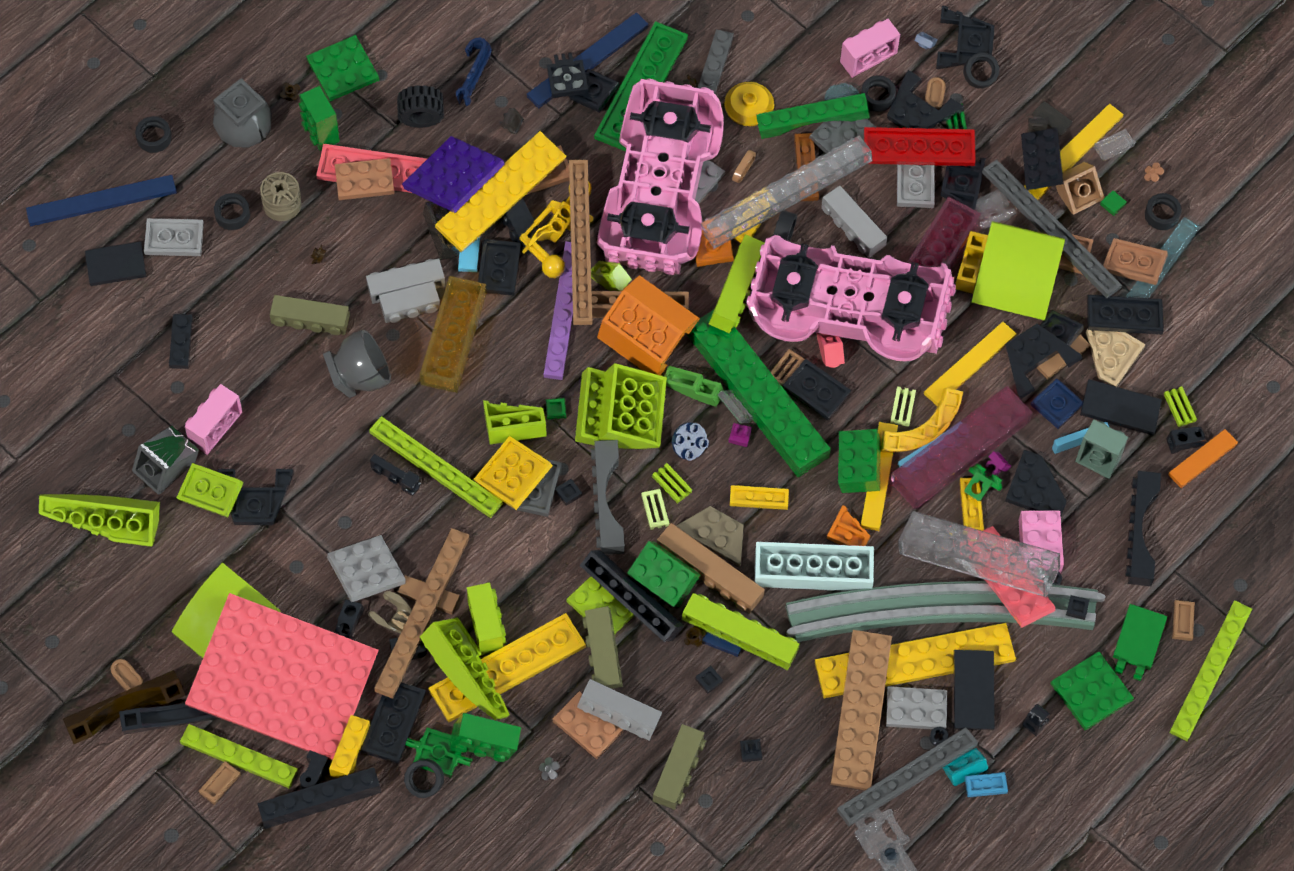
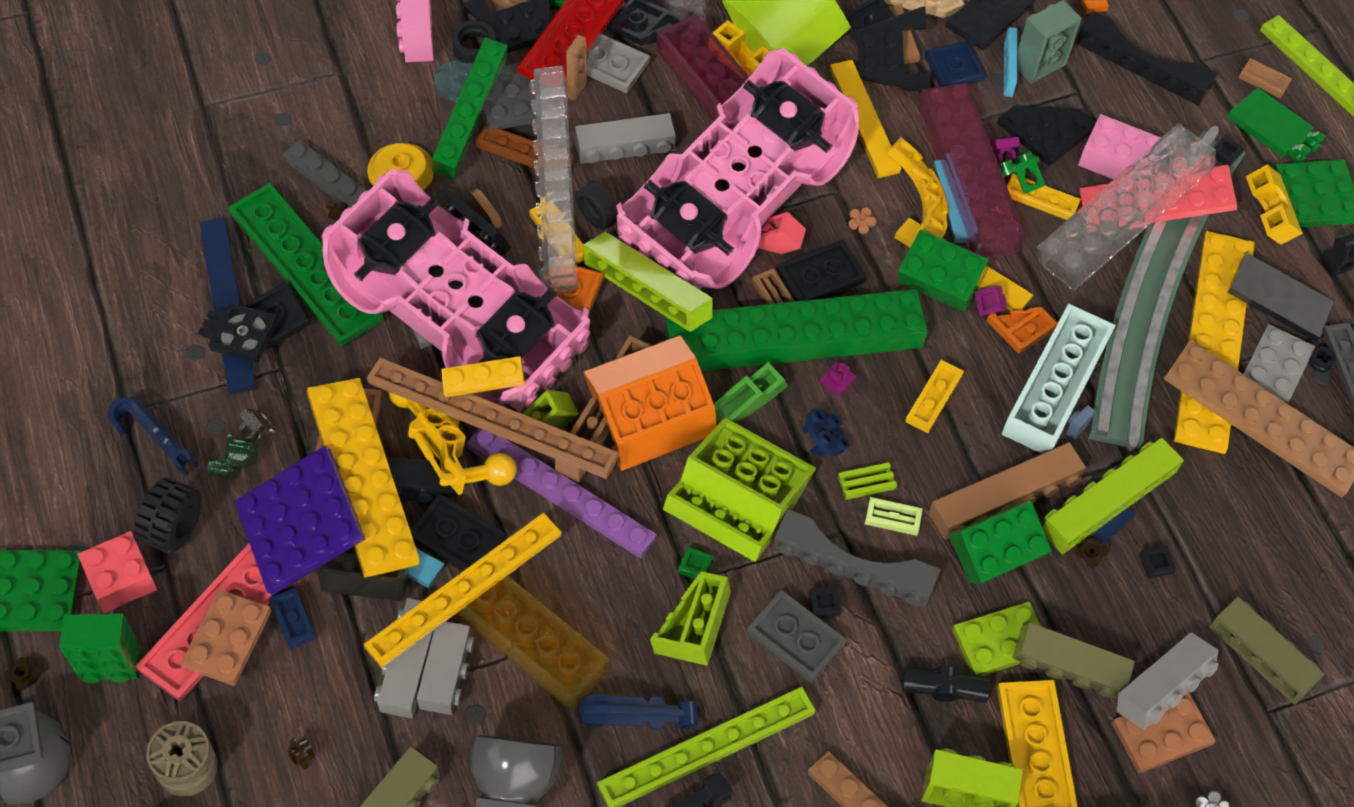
camera: 65 degrees left, 5 degrees down
(374, 102) = (117, 572): none -> coral brick
(397, 207) = (292, 618): none -> dark blue plate
(435, 416) = (635, 712): none -> dark blue piece
(457, 283) = (462, 590): none -> yellow tile
(485, 121) = (238, 453): none -> clear green piece
(513, 472) = (771, 653): yellow plate -> none
(549, 583) = (945, 684): none -> black piece
(601, 220) = (483, 376): none -> yellow plate
(632, 595) = (1011, 593): black brick -> none
(717, 533) = (960, 463): dark tan wing -> none
(726, 163) = (477, 224): none -> black plate
(735, 406) = (801, 364): clear tile -> none
(751, 750) = (1268, 560): black tile -> none
(789, 593) = (1080, 421): none -> sand blue plate
(854, 501) = (991, 300): none -> magenta tile
(879, 398) = (861, 220): none -> nougat plant
(883, 161) = (576, 67): none -> medium nougat tile
(905, 392) = (888, 201): yellowish green tile -> none
(1067, 652) = (1279, 214): none -> yellow arch

